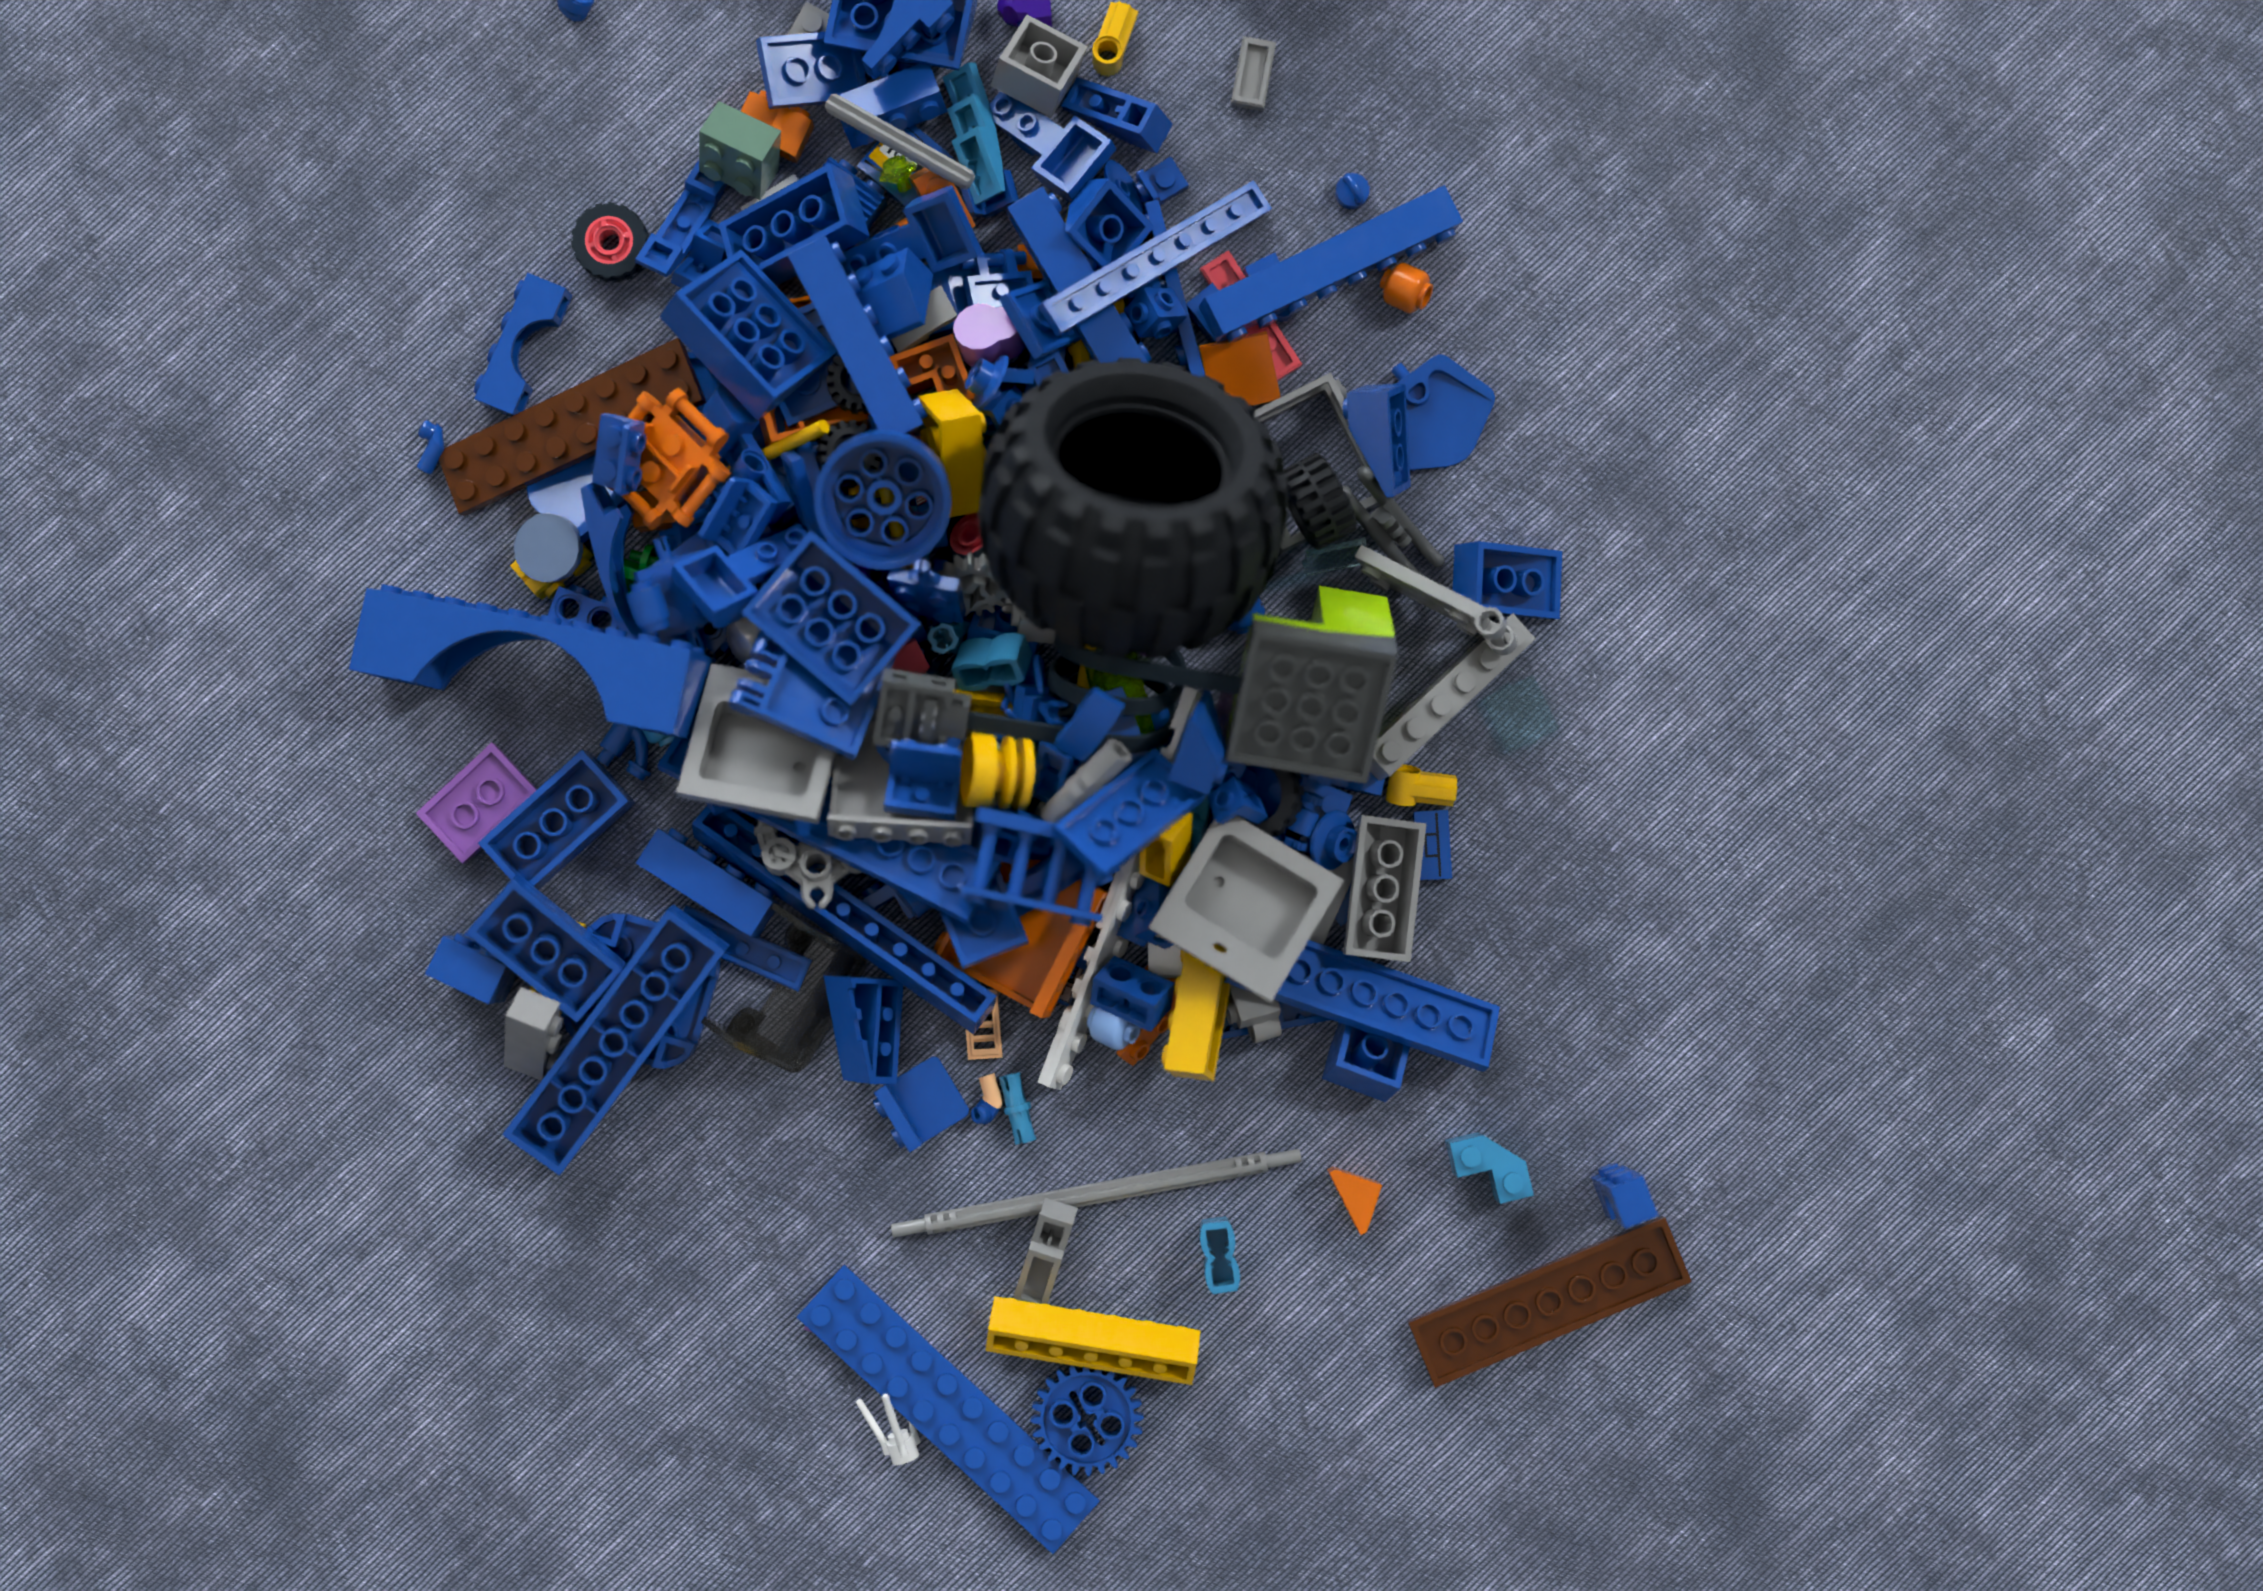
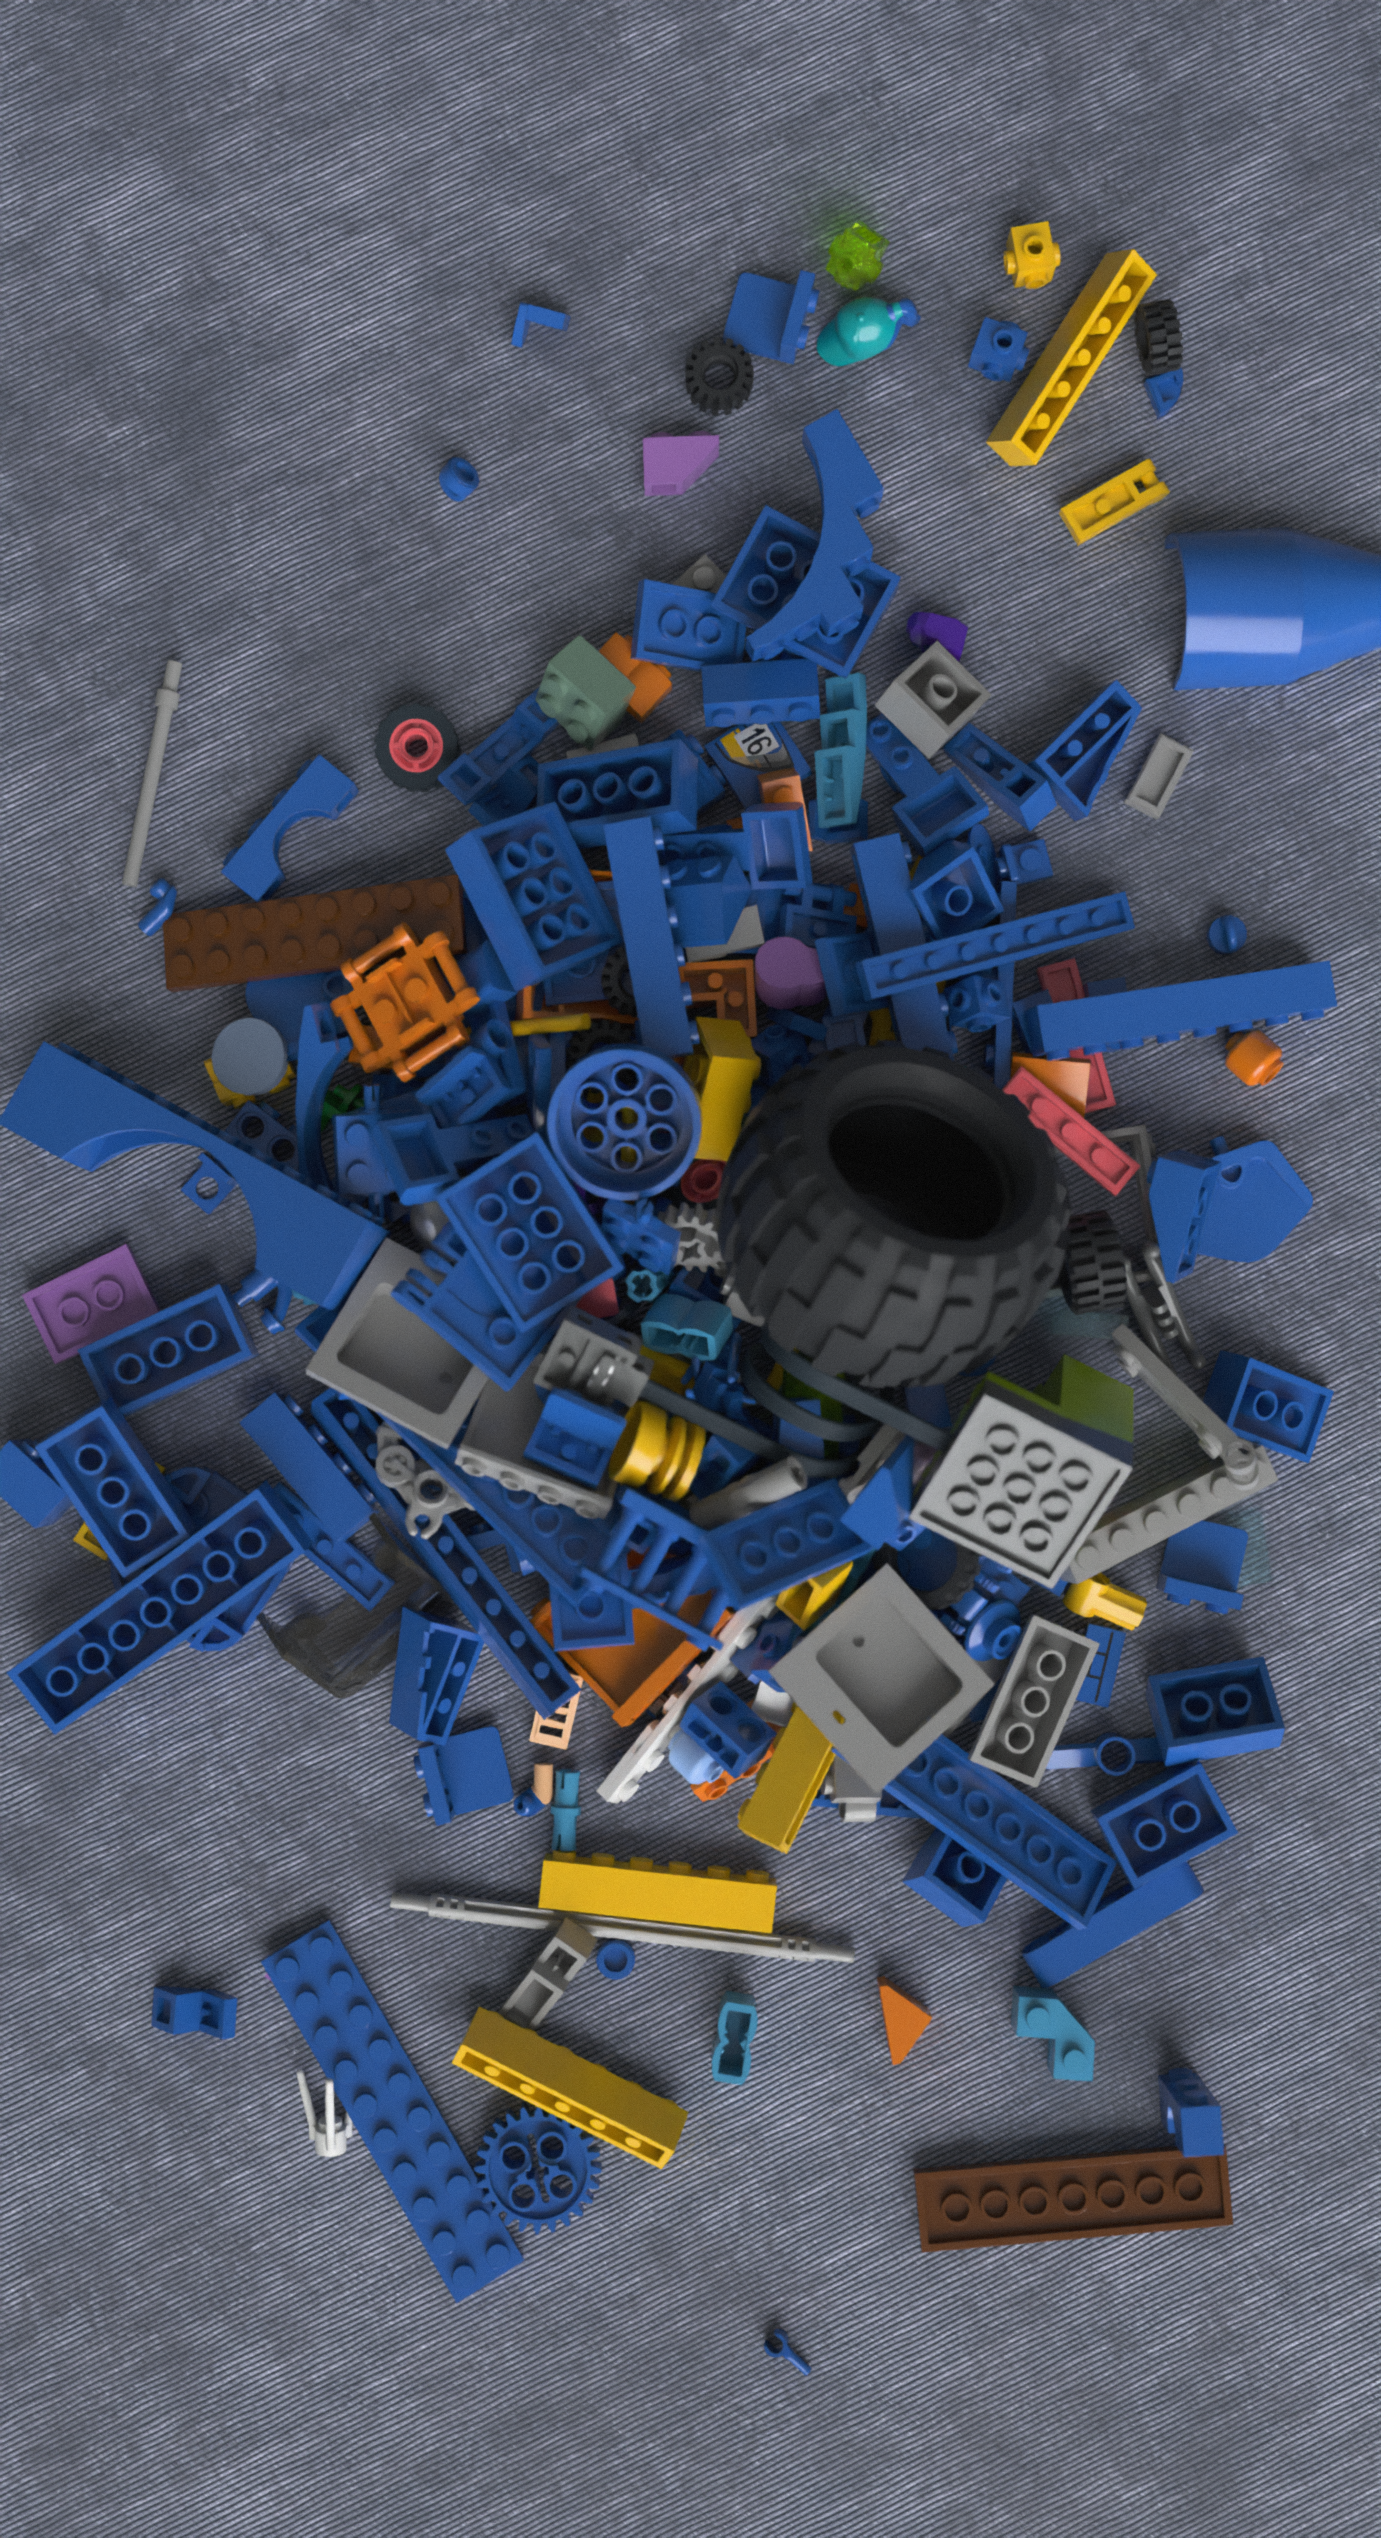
camera: 20 degrees right, 0 degrees up
(383, 269) = (167, 702): none -> light grey bar
(532, 1034) = (73, 1574): light grey brick -> none
(548, 655) = (215, 1169): none -> blue bracket
(619, 453) = (356, 982): blue bracket -> none
(648, 606) = (338, 1158): blue brick -> none
(752, 1377) = (194, 2009): none -> blue slope
(897, 171) = (747, 766): clear neon green plant -> none
(900, 141) = (760, 737): light grey axle -> none
(985, 379) = (774, 1022): blue piece -> none
(1089, 724) = (773, 1435): blue slope -> none
(1099, 1221) = (615, 1958): none -> blue tile
(1114, 37) = (1022, 692): yellow piece -> none
(1117, 1152) = (657, 1891): none -> yellow brick
(1182, 68) = (1085, 747): none -> blue wedge
(1216, 659) = (928, 1404): none -> blue brick
(1236, 799) = (905, 1561): blue bracket -> none
(1272, 398) = (1073, 1133): none -> coral tile
(1347, 1509) = (786, 2351): none -> blue hand
(1489, 908) = (1089, 1754): none -> blue piece
(1496, 731) = (1204, 1566): none -> blue bracket
(1511, 1057) = (1112, 1923): none -> blue beam
(1528, 958) = (1163, 1822): none -> blue brick
(1541, 851) = (1214, 1711): none -> blue brick

